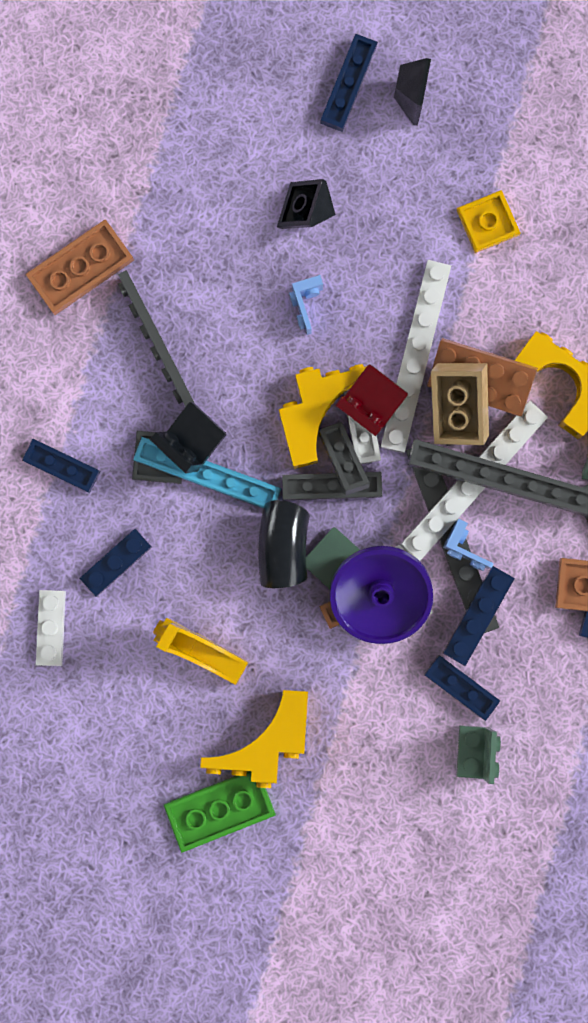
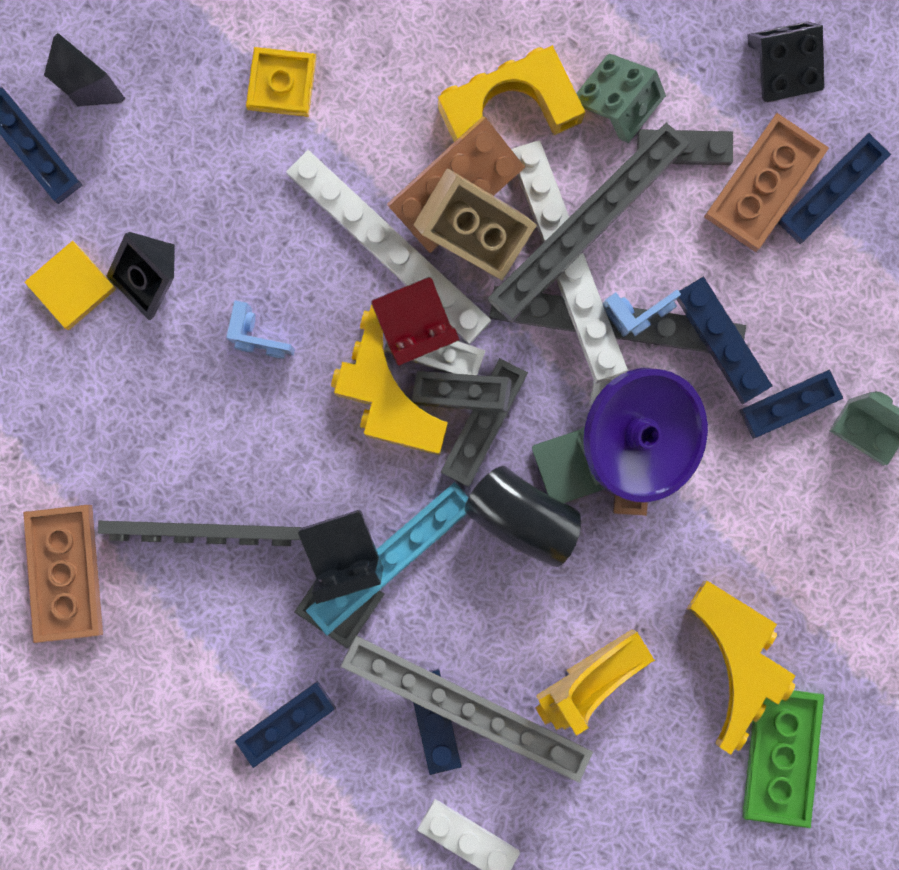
camera: 65 degrees left, 0 degrees up
(135, 578) = (466, 708): none -> light grey plate
(270, 162) = (70, 285): none -> yellow tile

